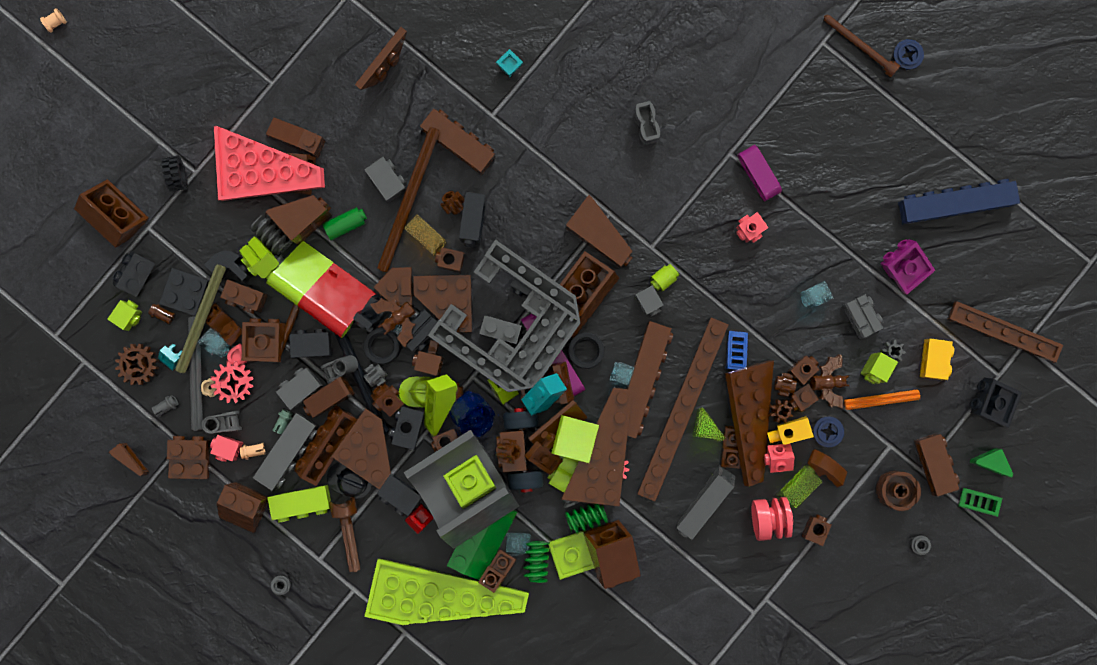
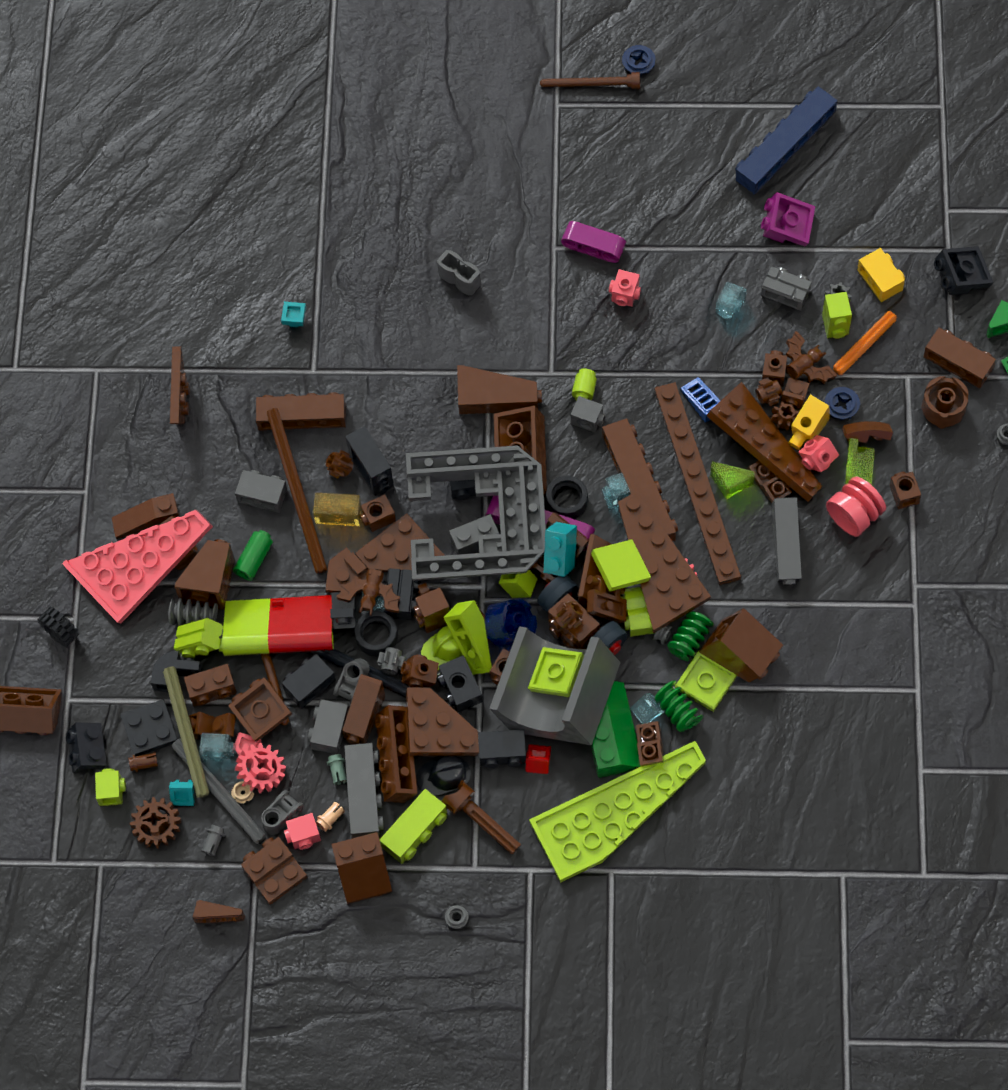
camera: 25 degrees left, 20 degrees down
(1005, 332) = (919, 210): reddish brown plate -> none

